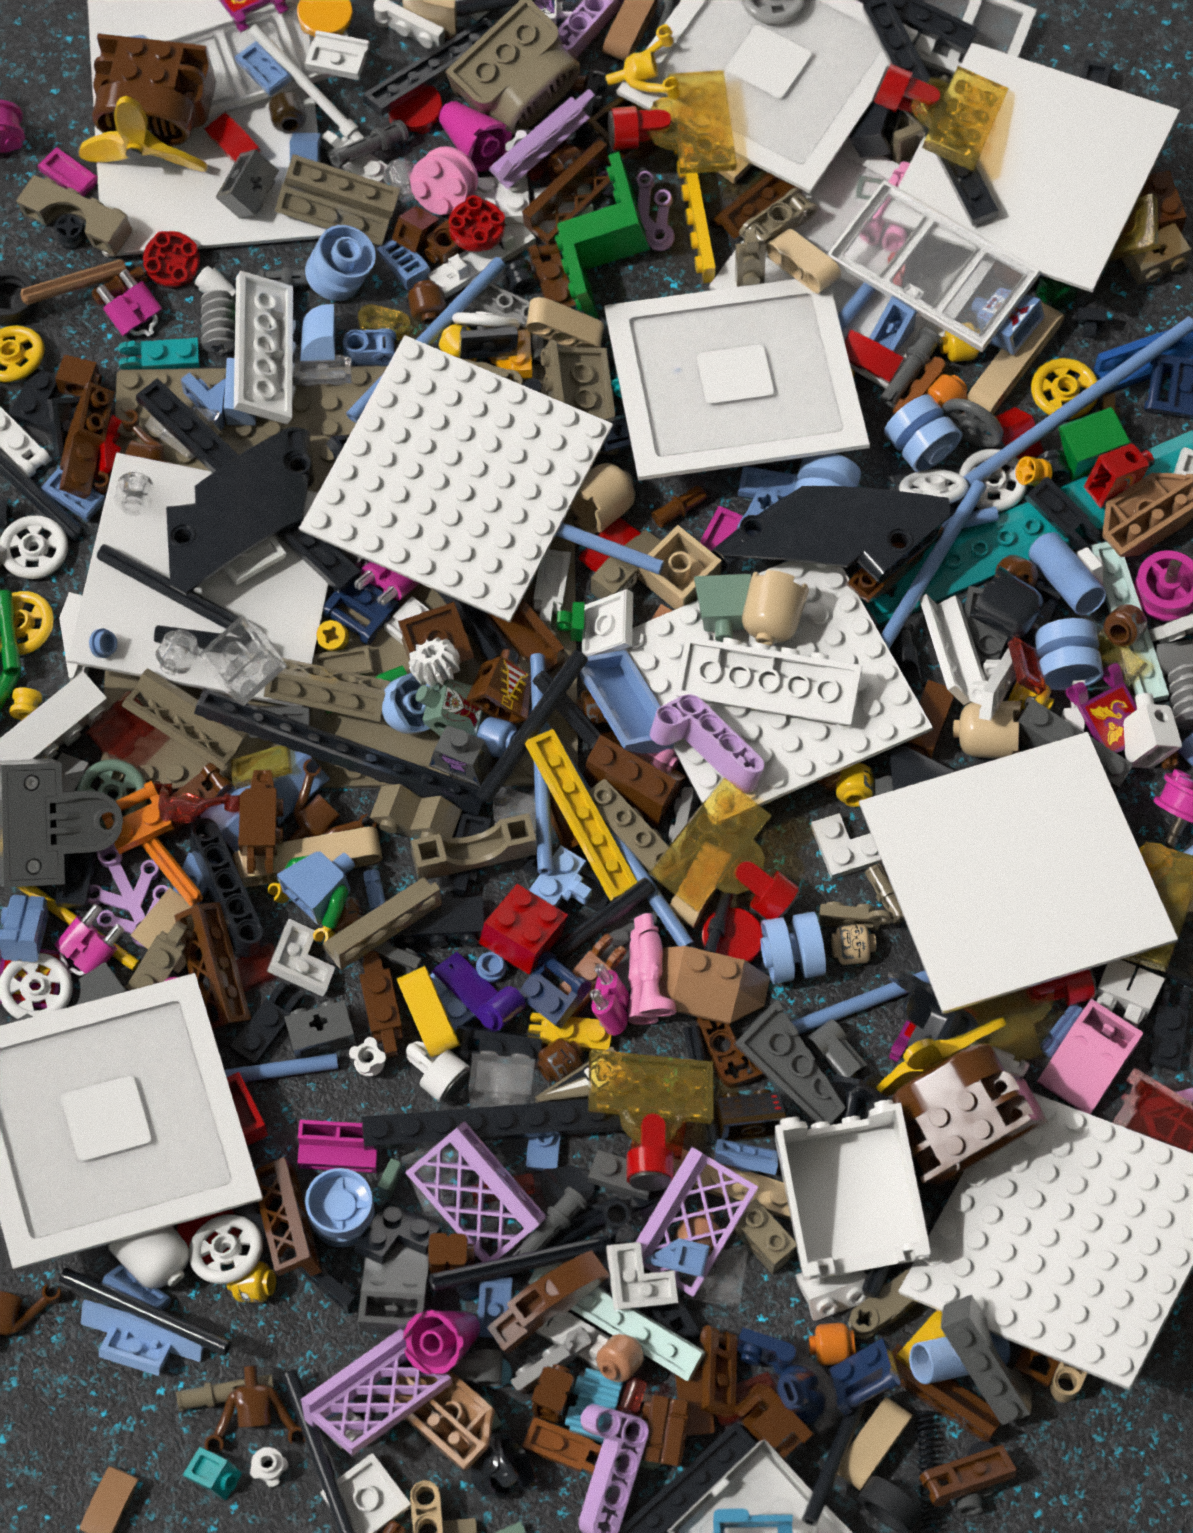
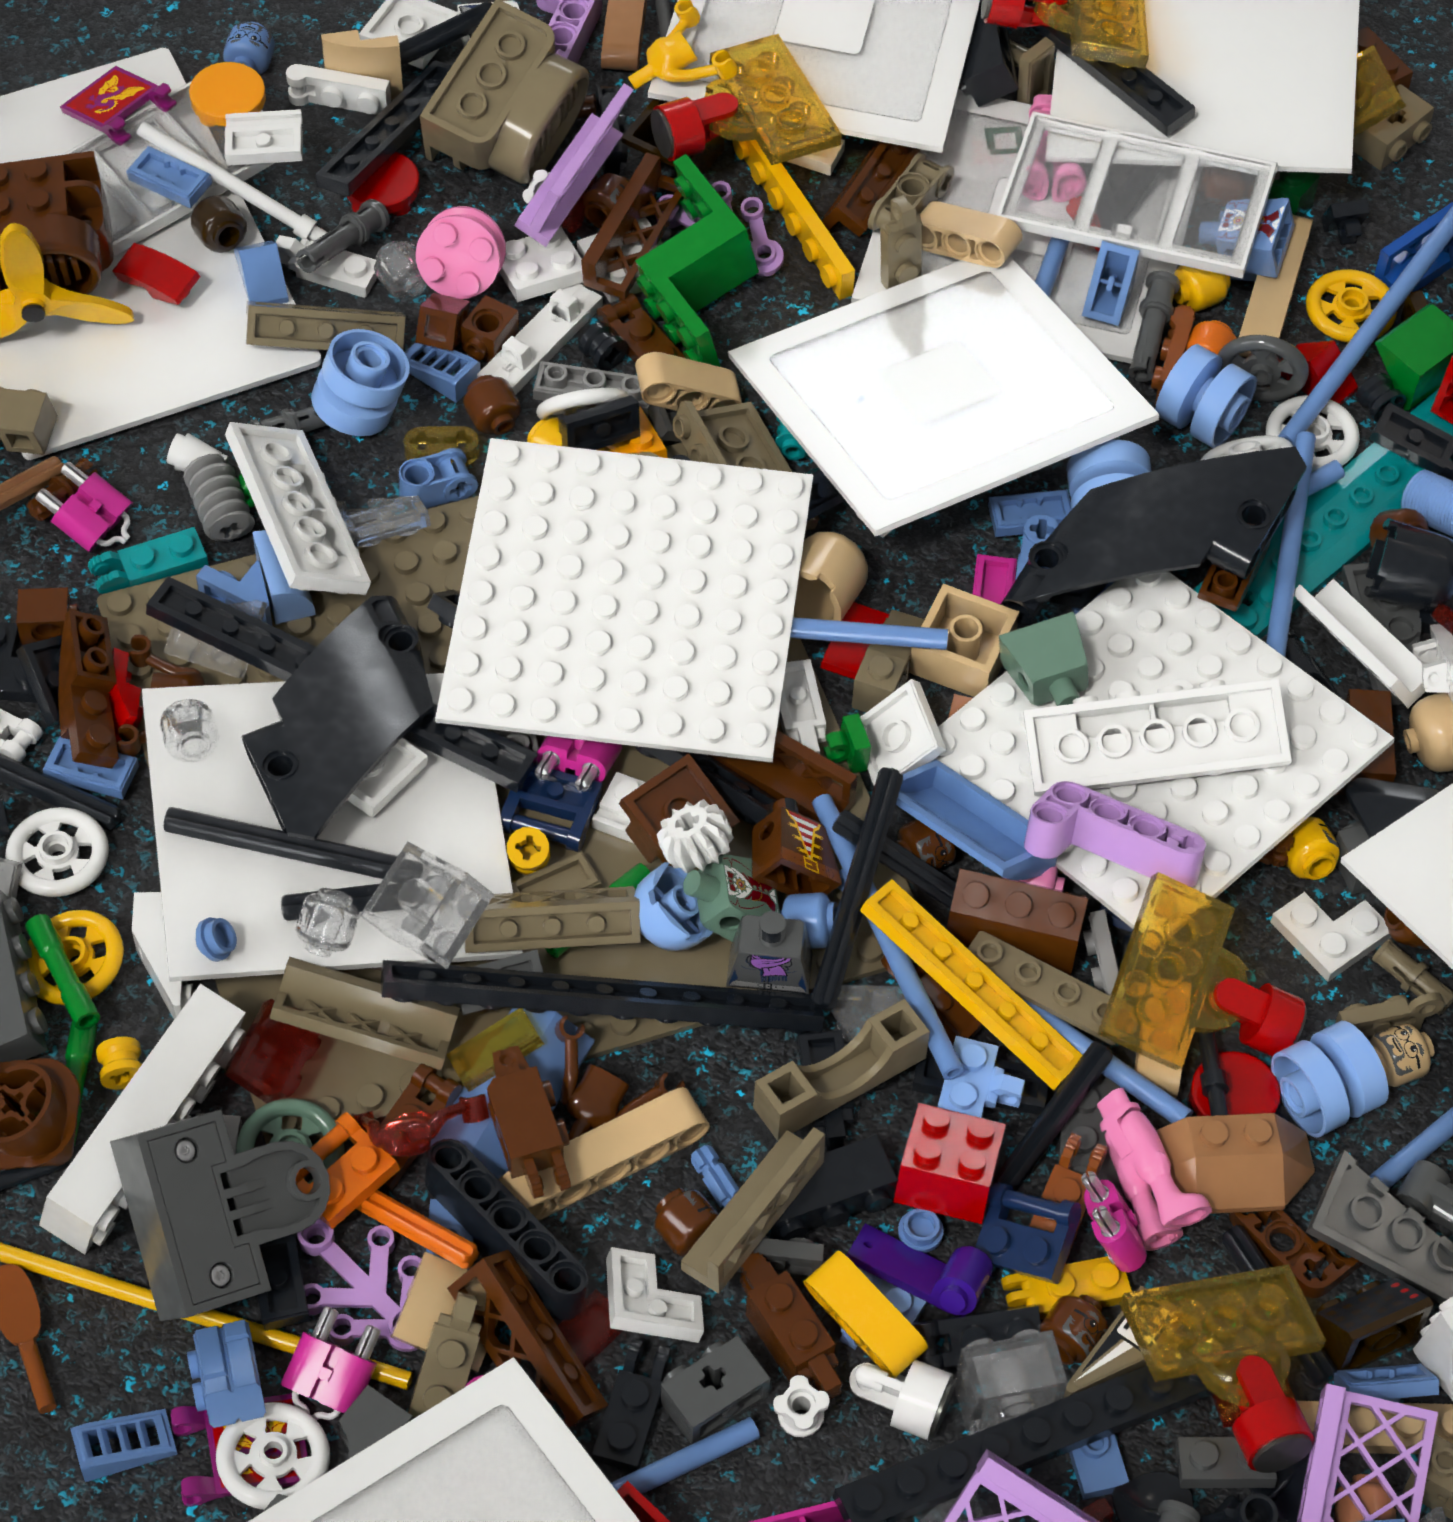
camera: 20 degrees left, 10 degrees down
(171, 259) = (123, 439): red tile -> none
(247, 184) = (198, 318): dark grey brick -> none
(316, 888) = (639, 1188): medium blue torso -> none
(318, 334) = (362, 477): light blue brick -> none
(342, 185) = (327, 288): dark tan fence -> none
(415, 817) = (730, 1059): dark tan brick -> none
(436, 328) = (518, 431): medium blue piece -> none
(475, 134) = (479, 185): dark pink cone -> none
(476, 224) = (525, 293): red tile -> none
(678, 506) = (924, 569): reddish brown axle -> none
(773, 607) = (1122, 641): tan cylinder -> none
(871, 356) = (1103, 323): red slope -> none
(1032, 471) = (1356, 400): light orange wheel -> none

